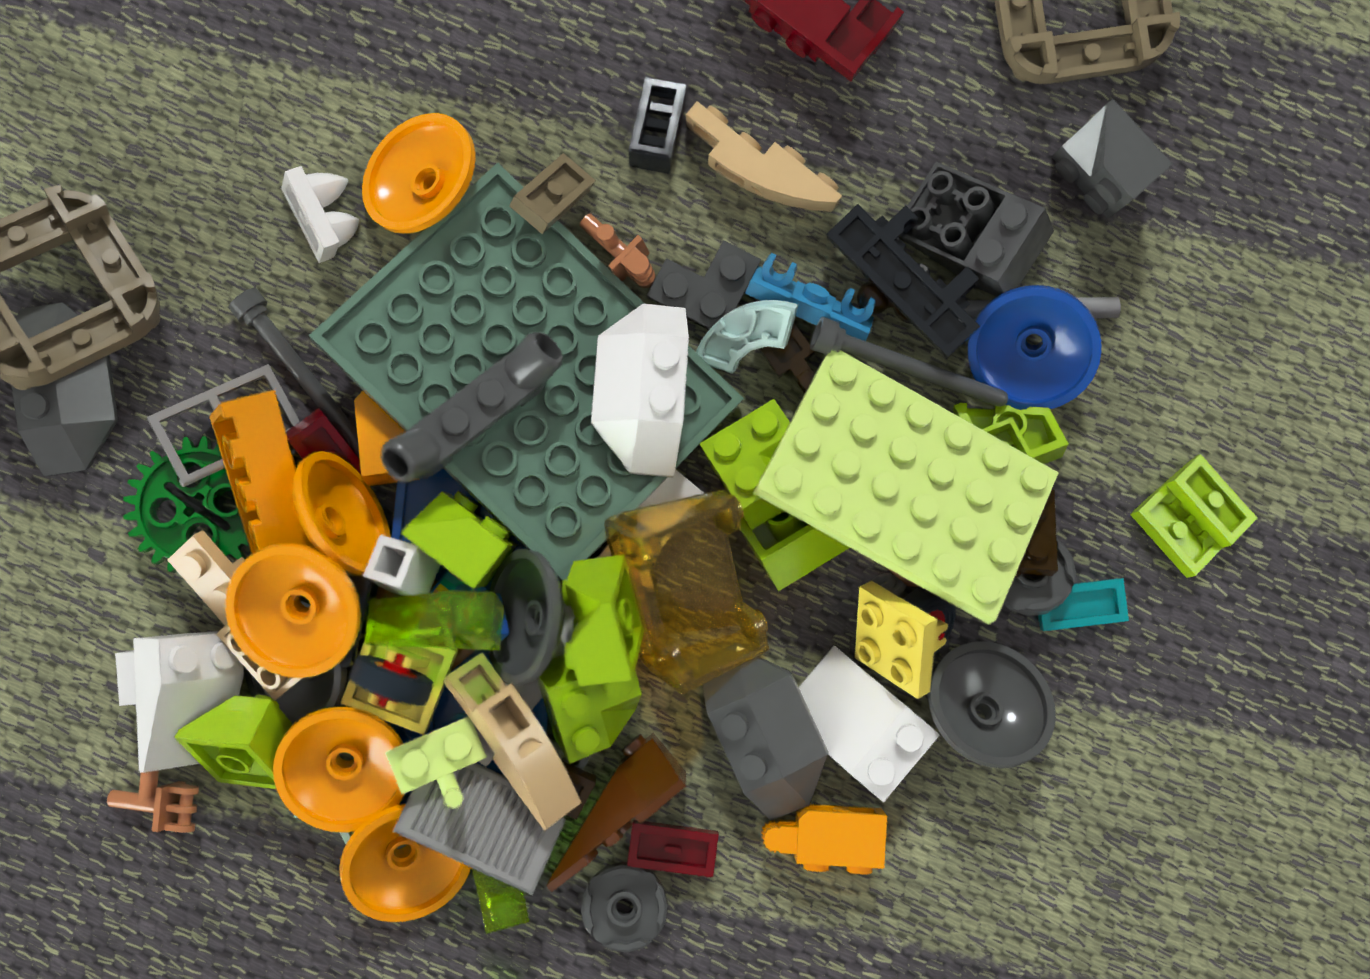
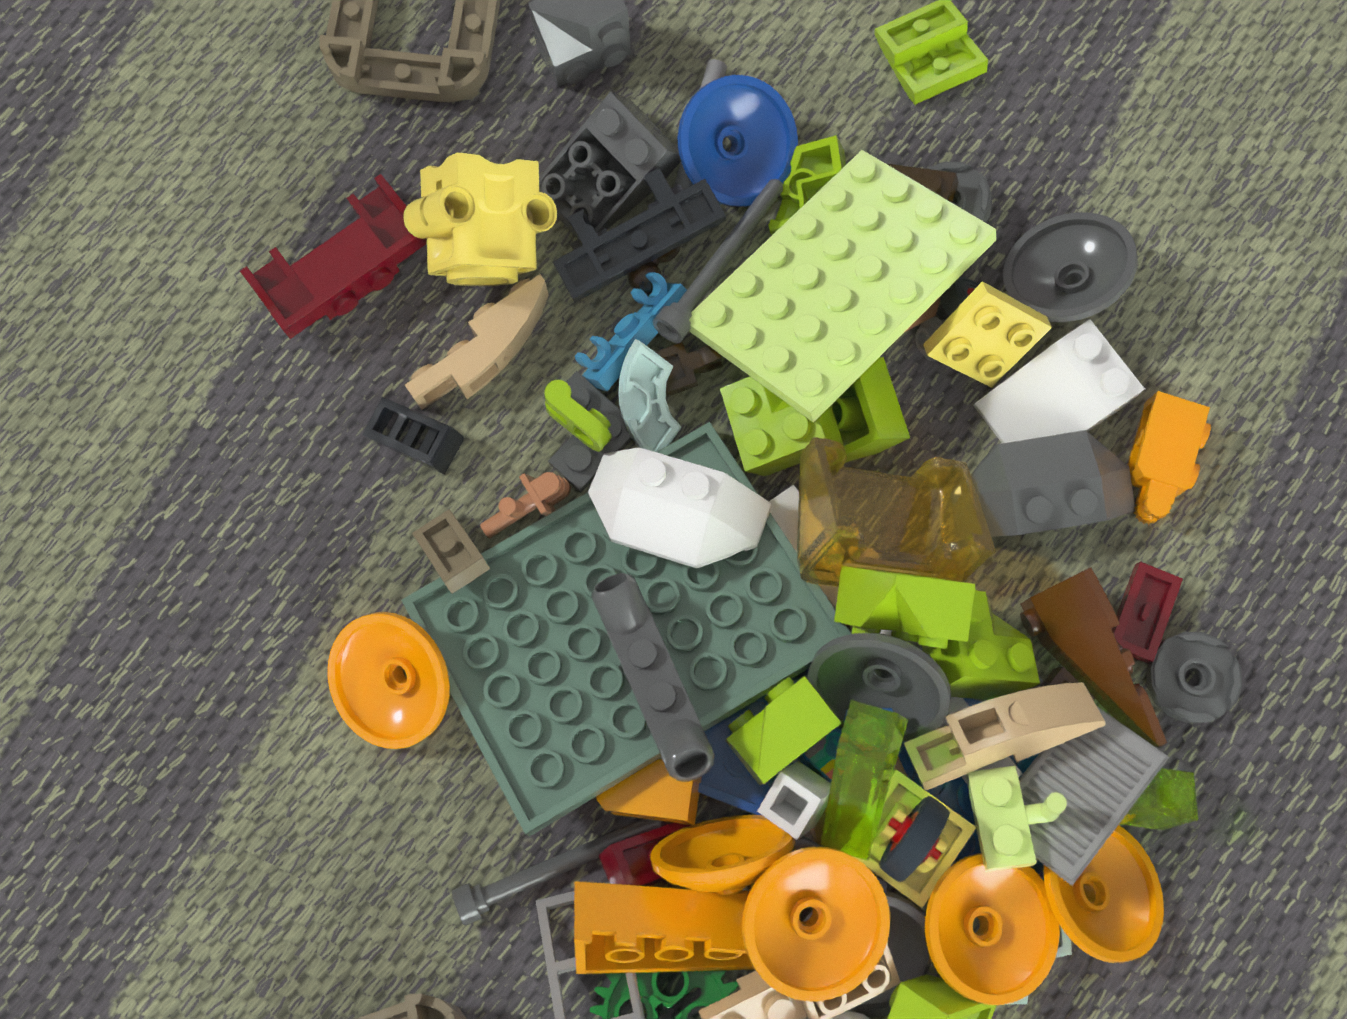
camera: 70 degrees left, 10 degrees down
(307, 198) = (379, 809): white tile -> none
(703, 285) = (588, 426): none -> lime plate
(874, 122) = (480, 219): none -> light yellow piece
(1089, 605) = (993, 155): teal tile -> none

